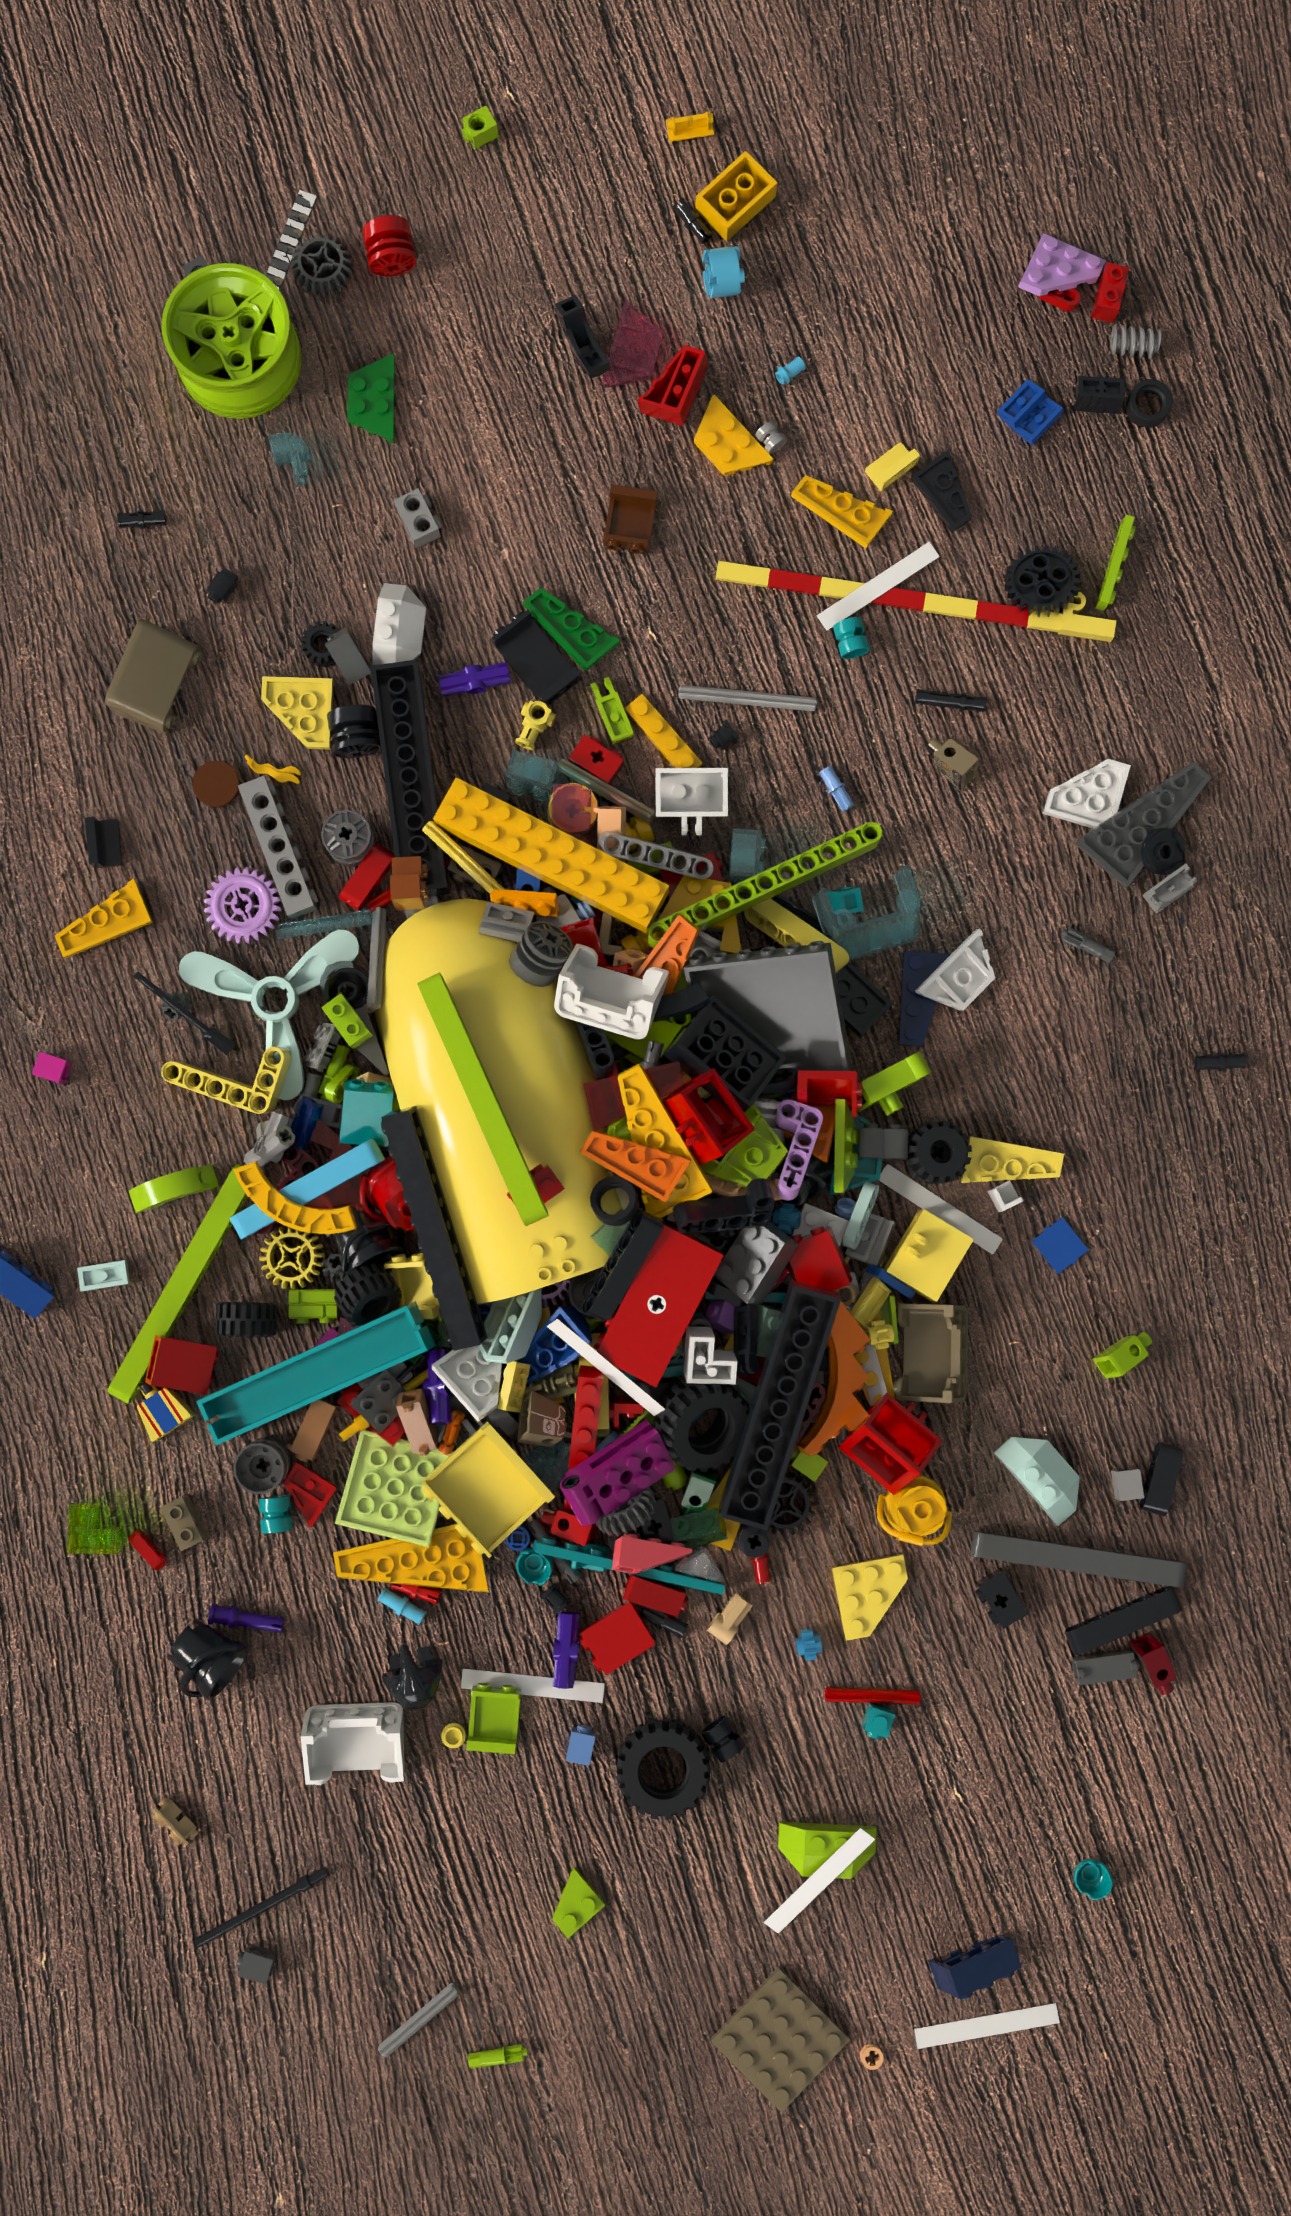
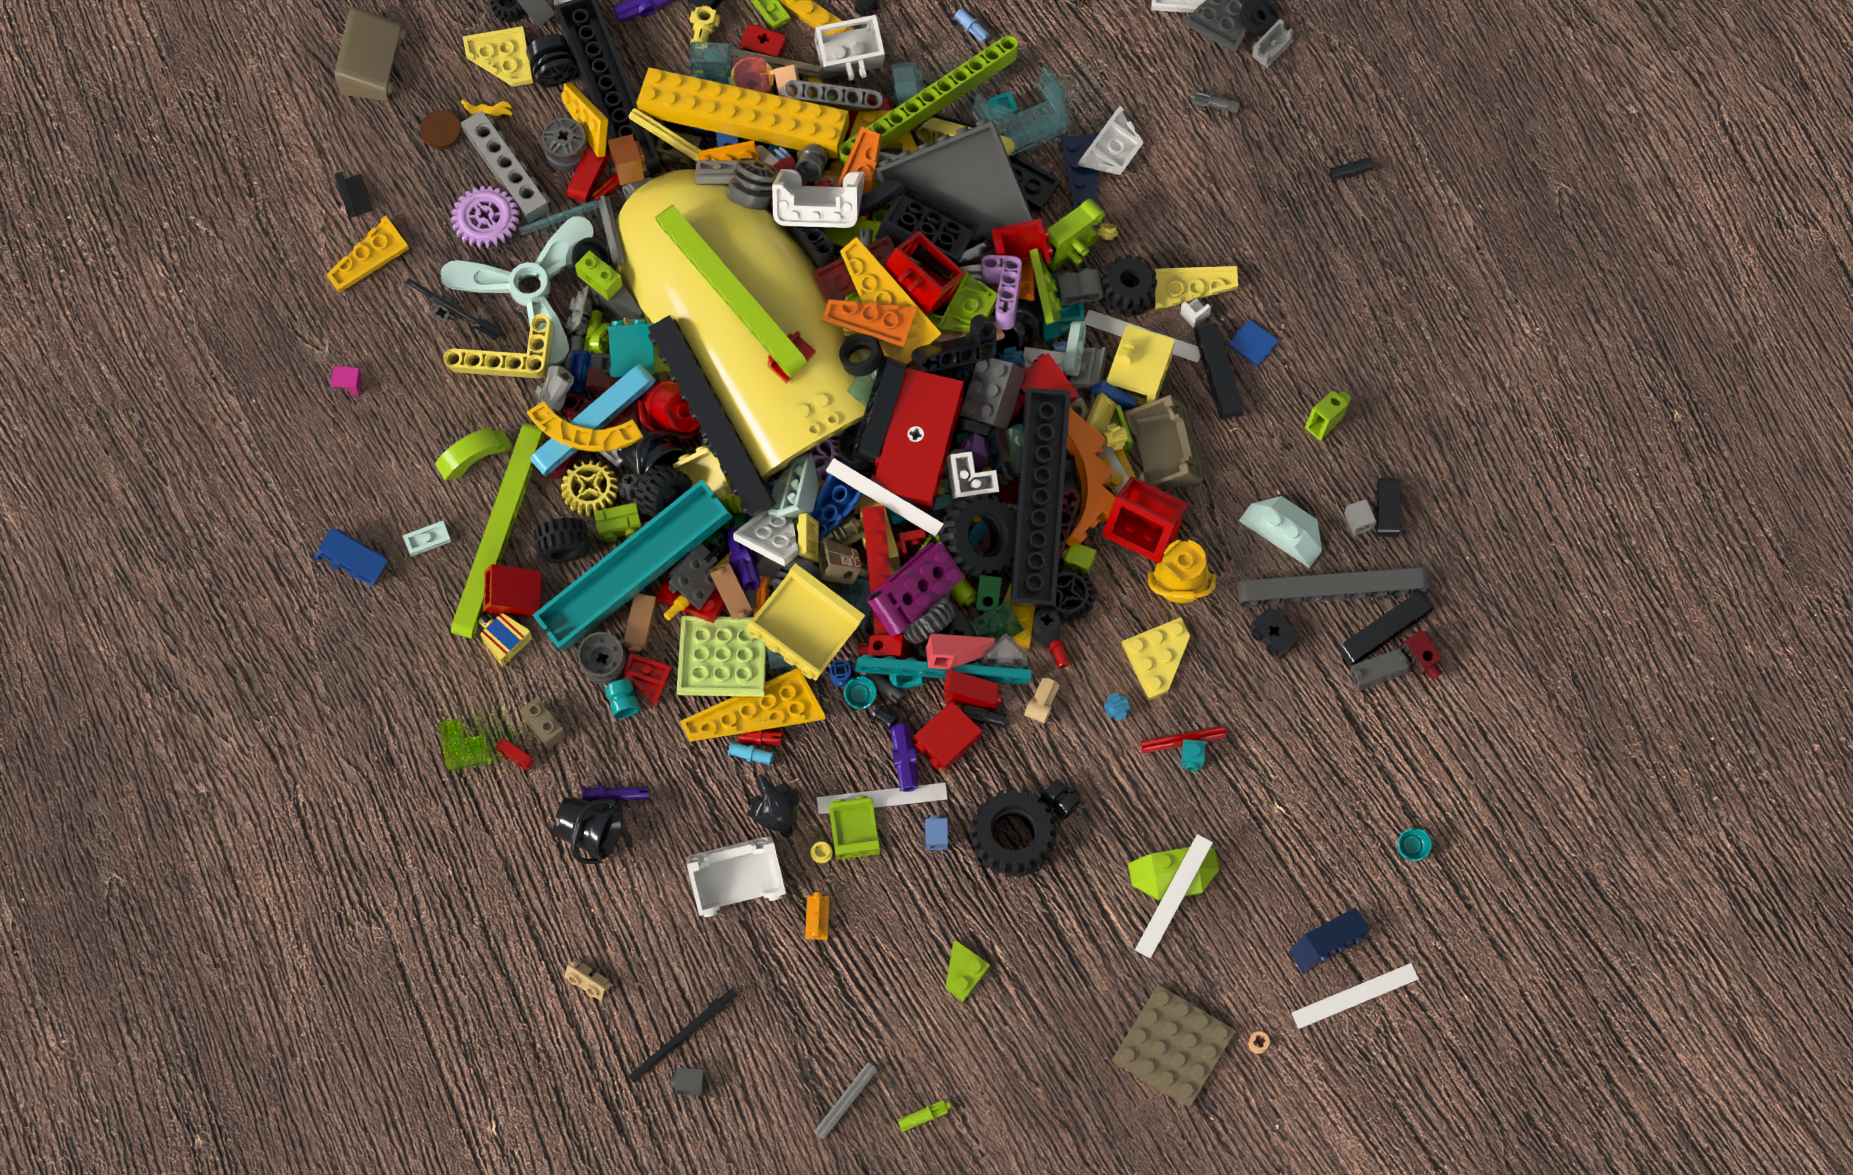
camera: 10 degrees left, 15 degrees down
(378, 812) = (587, 115): none -> yellow wing
(433, 1808) = (817, 917): none -> light orange hinge
(614, 938) = (812, 162): none -> dark grey wheel
(933, 1079) = (1107, 231): none -> light yellow plate
(1013, 1274) = (1218, 371): none -> black beam

